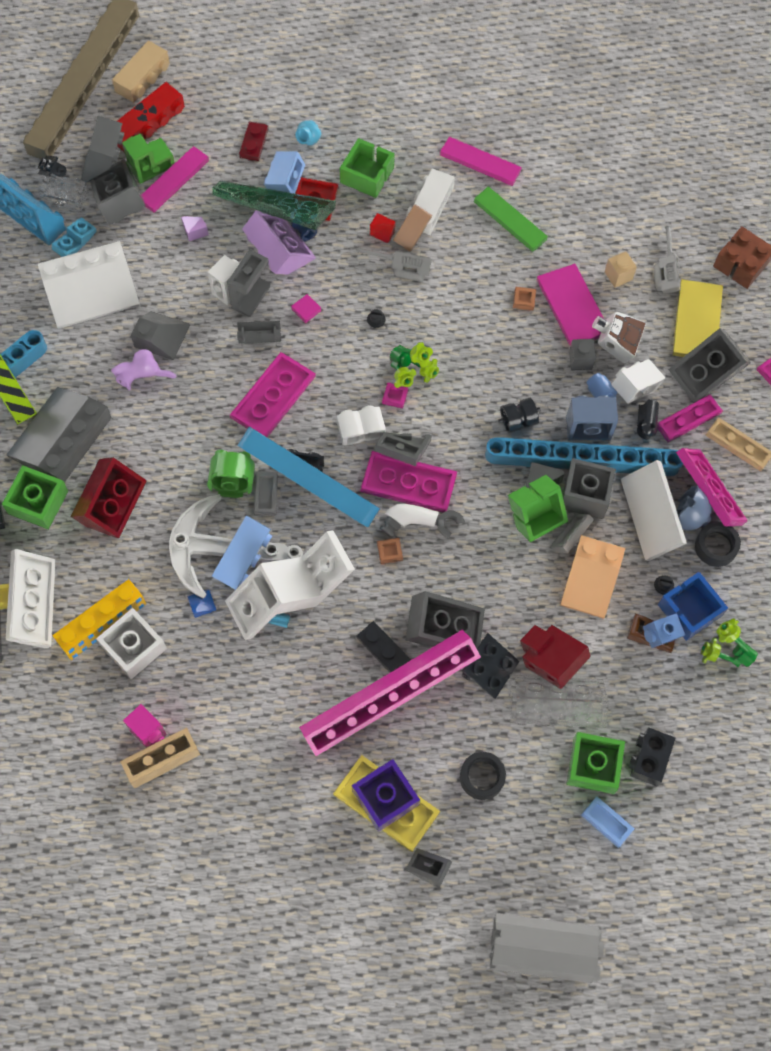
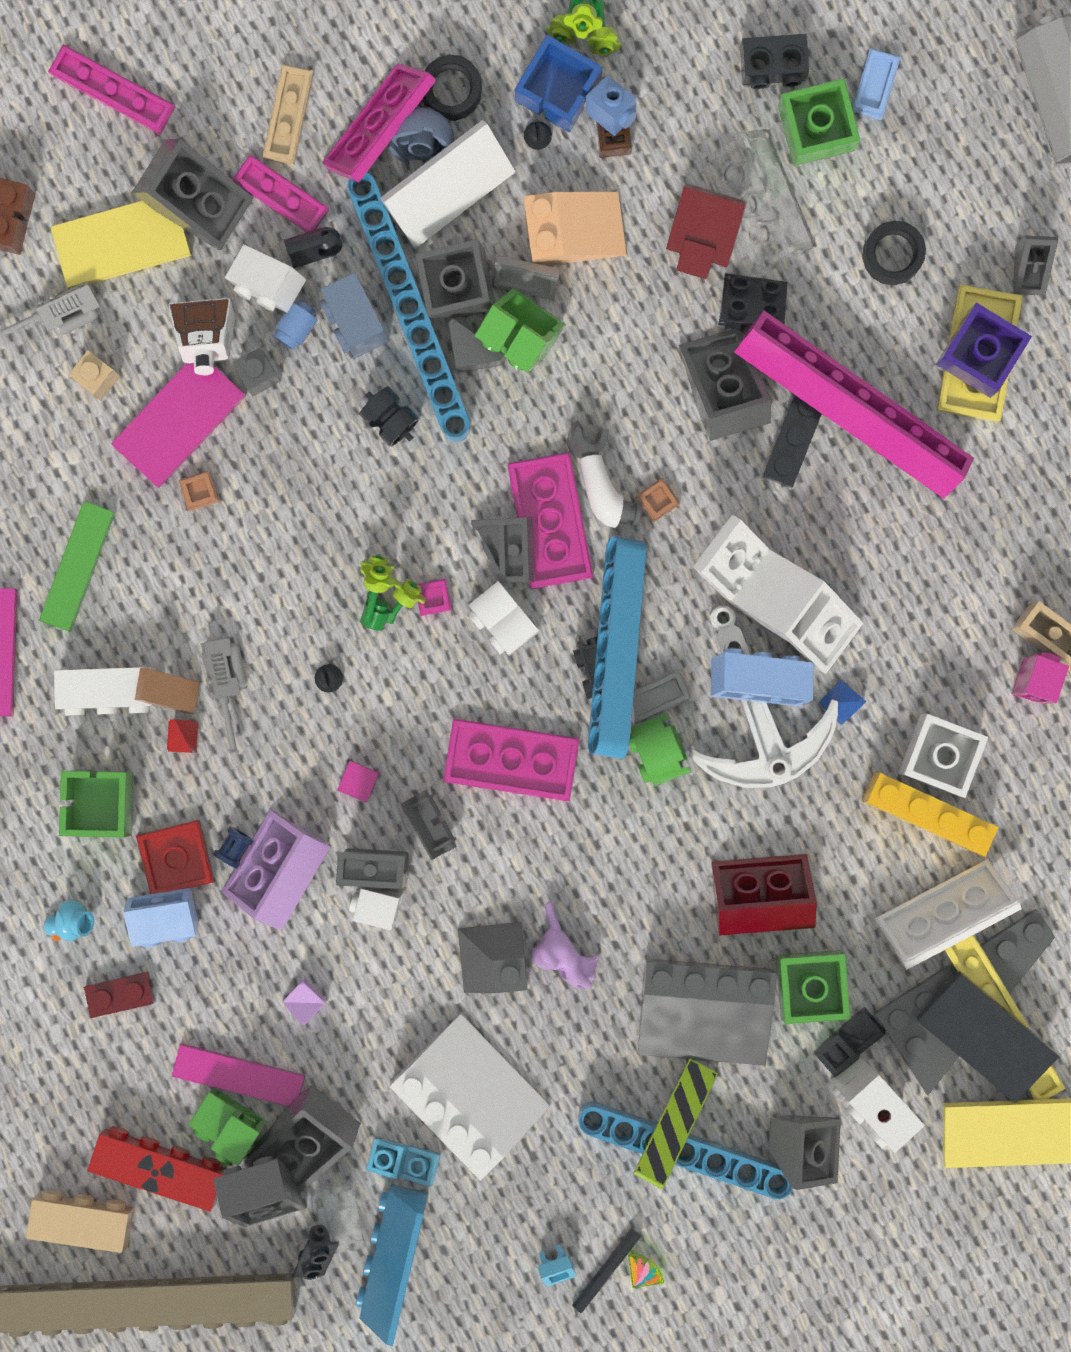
camera: 110 degrees left, 20 degrees up
(292, 207) = (220, 881): clear green wing -> none

